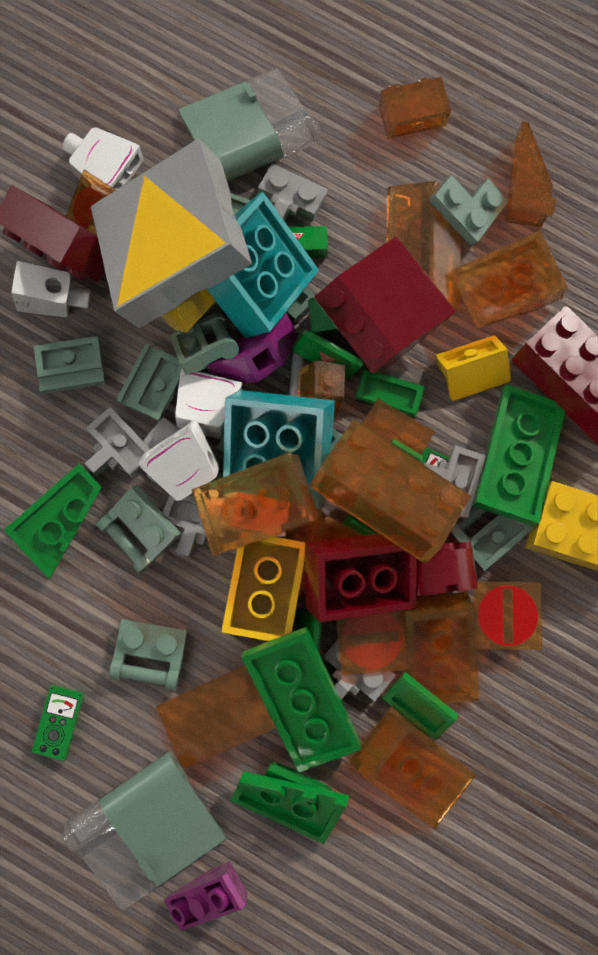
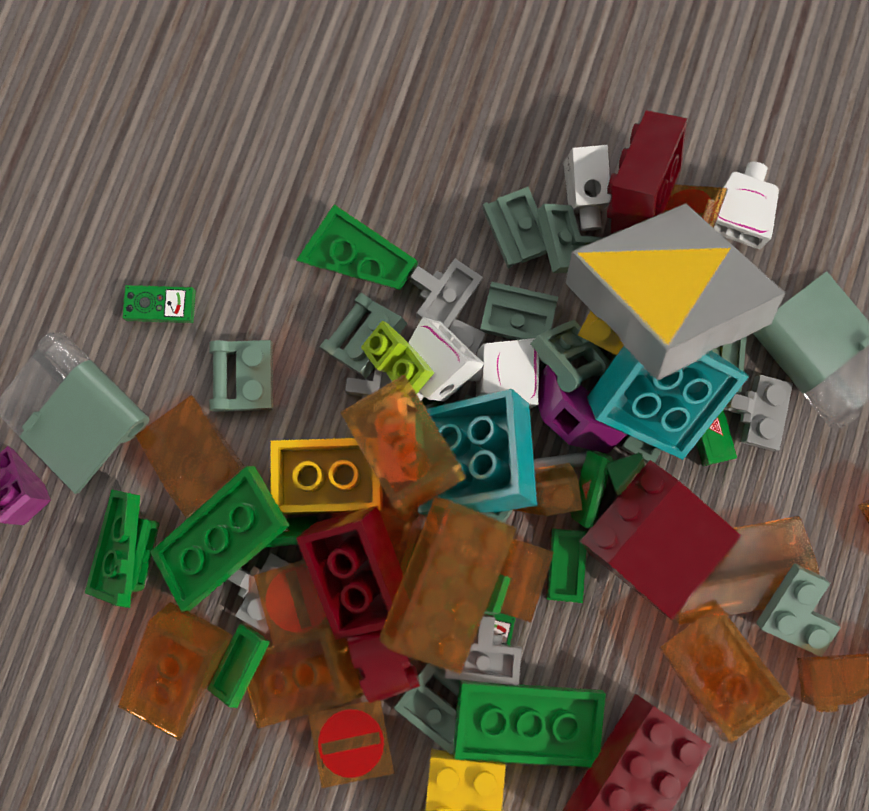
camera: 85 degrees right, 0 degrees up
(92, 325) = (561, 235): none -> sand green plate
(169, 498) = (396, 357): none -> lime slope
(474, 367) = (618, 654): yellow panel -> none

